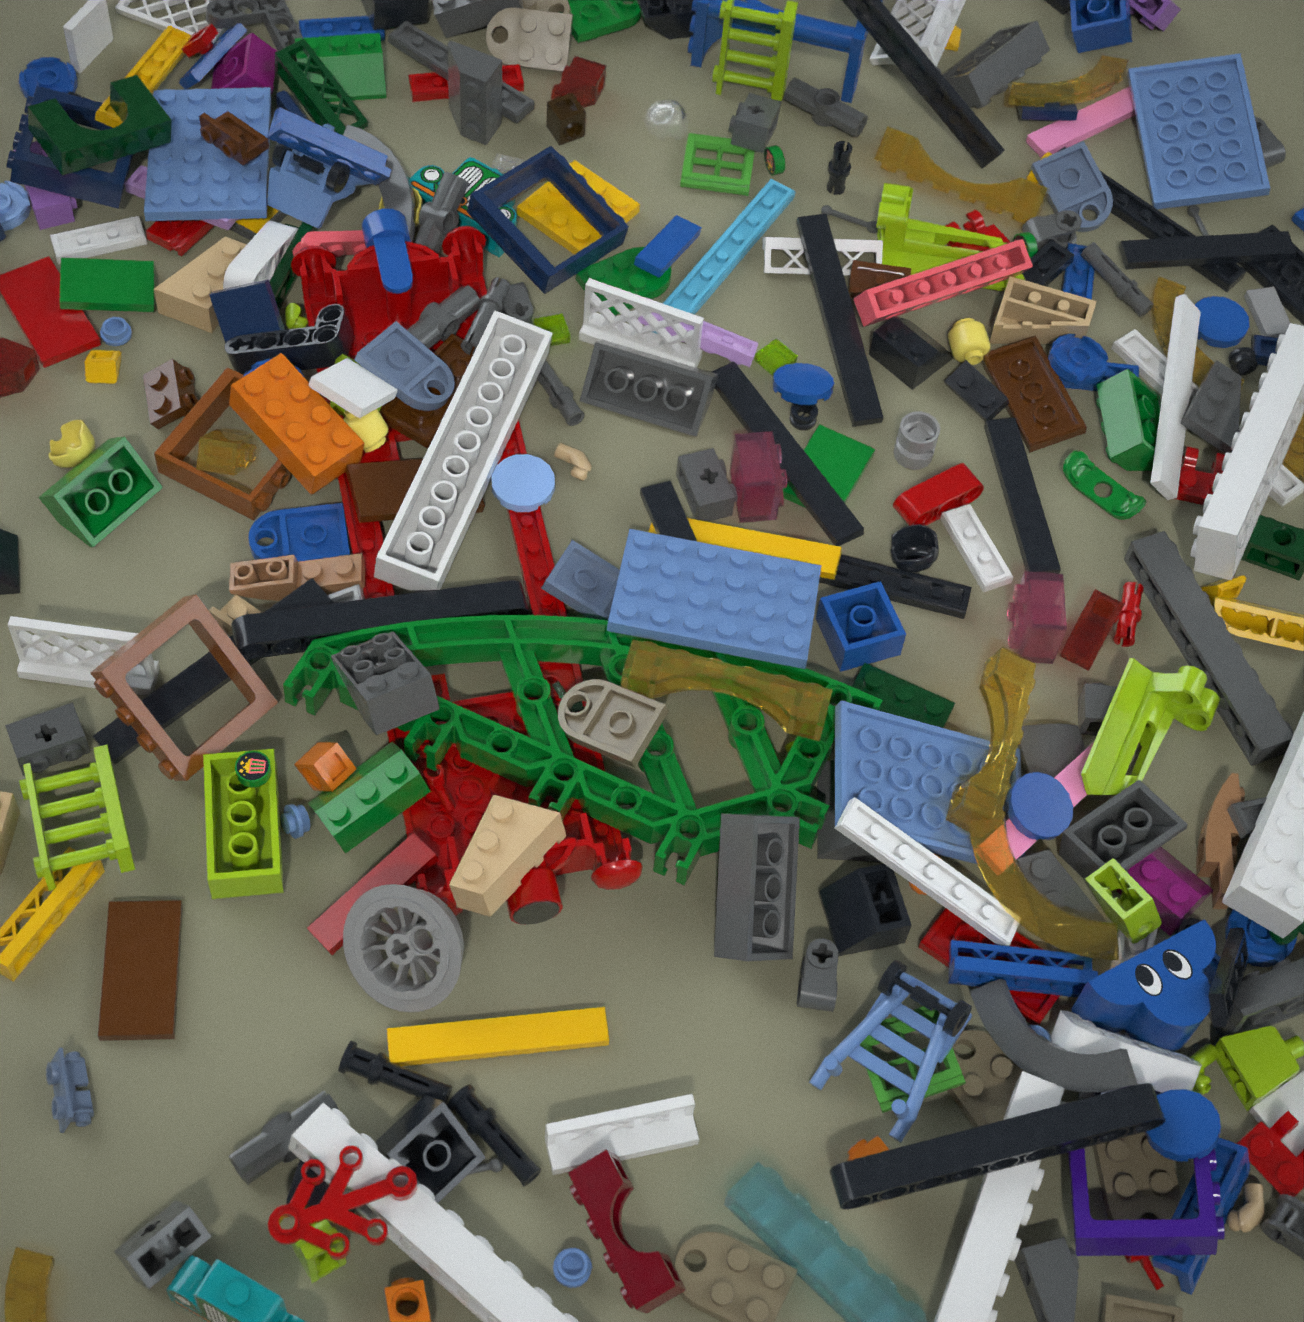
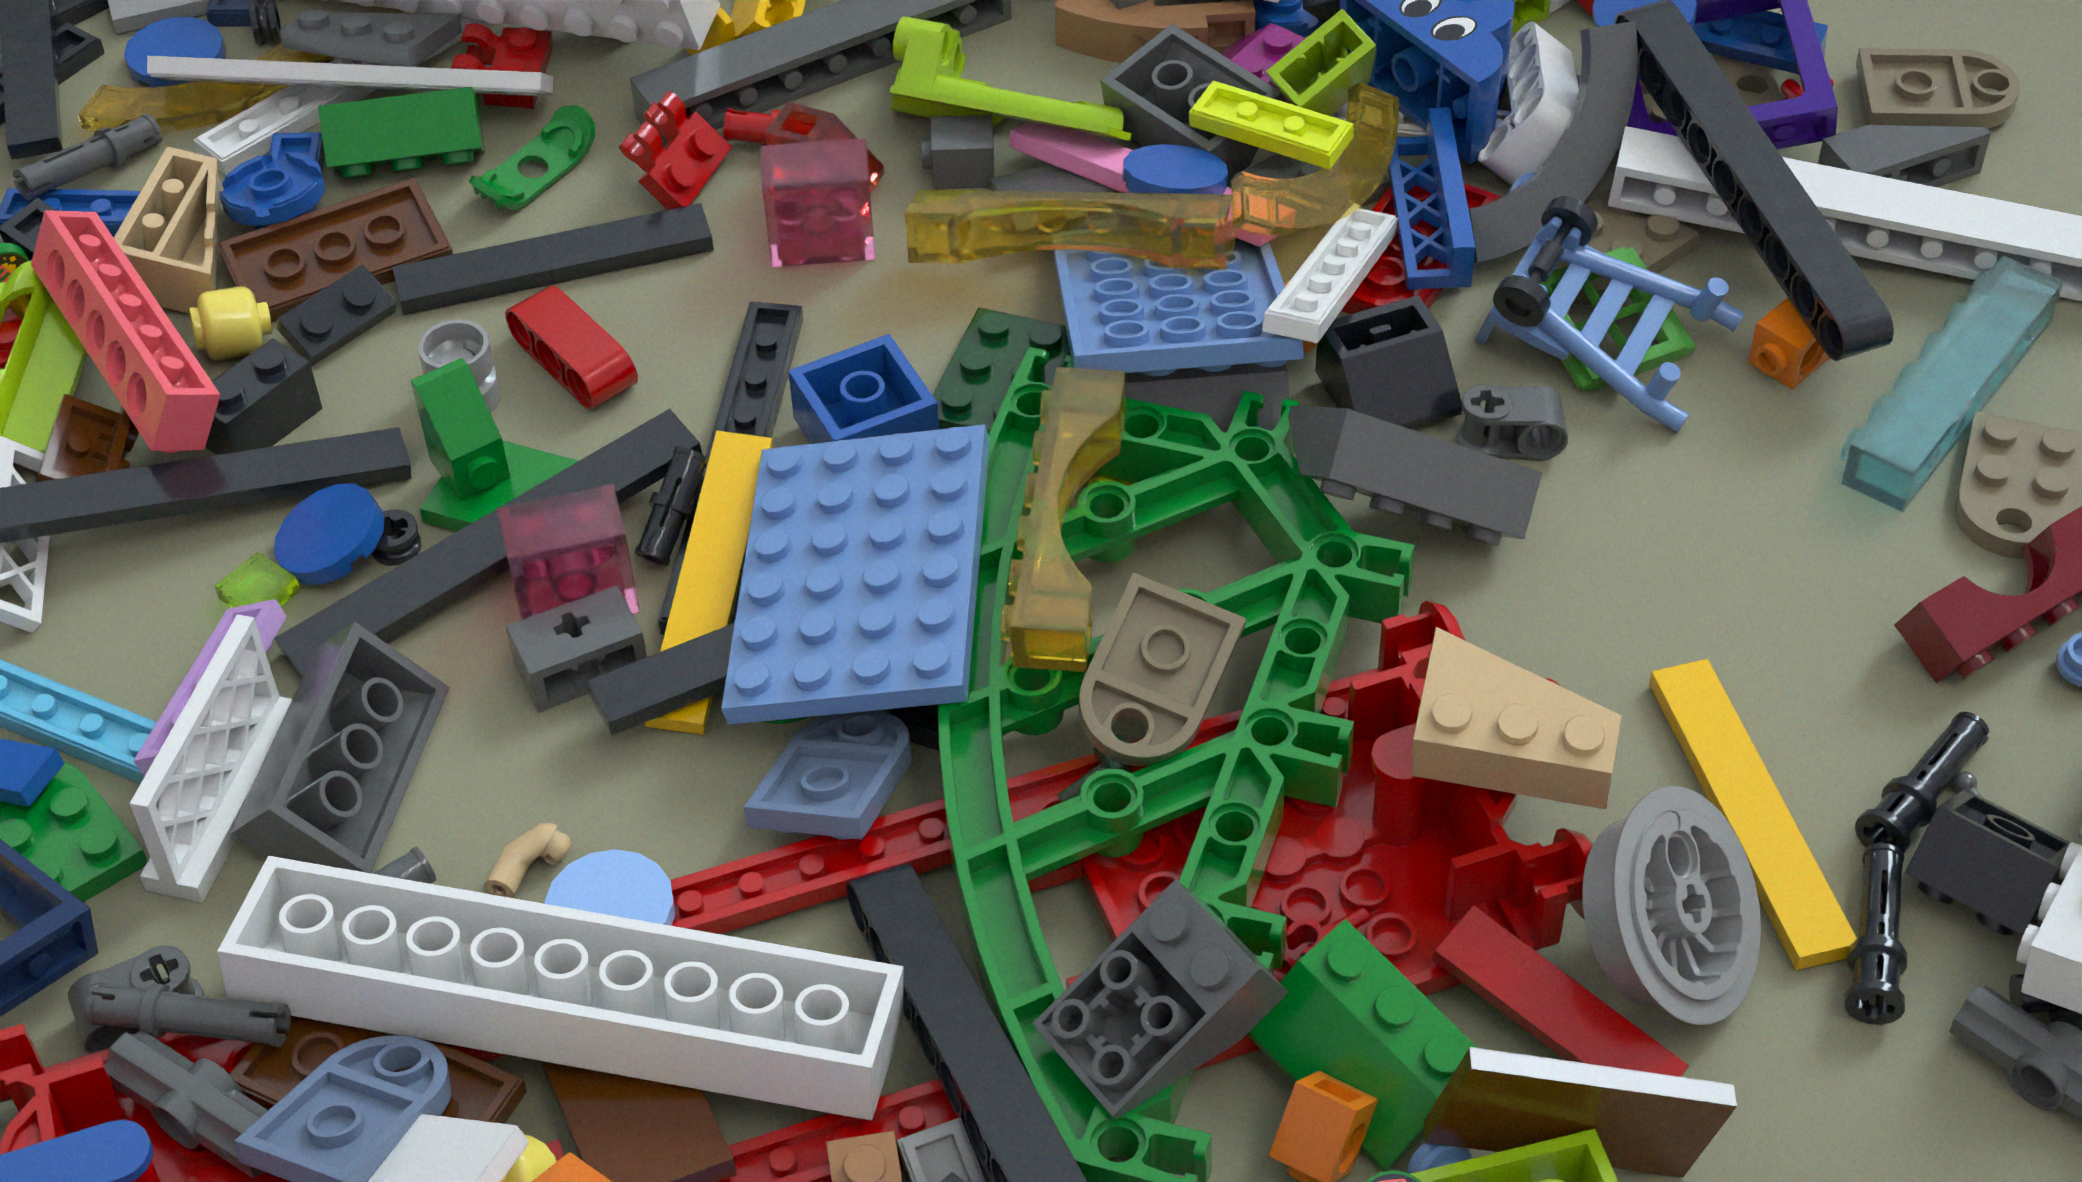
camera: 90 degrees left, 10 degrees down
(289, 866) = (1521, 1099): none -> reddish brown tile
(556, 325) = (191, 933): clear neon green tile -> none
(624, 1131) = (1856, 629): white fence -> none
(798, 529) = (659, 541): none -> black pin
(852, 430) = (459, 429): none -> green slope
(914, 548) = (690, 361): black hair -> none
(976, 548) = (670, 303): white tile -> none
(1074, 863) = (1271, 124): none -> neon yellow tile
(1095, 561) = (686, 161): none -> red plate

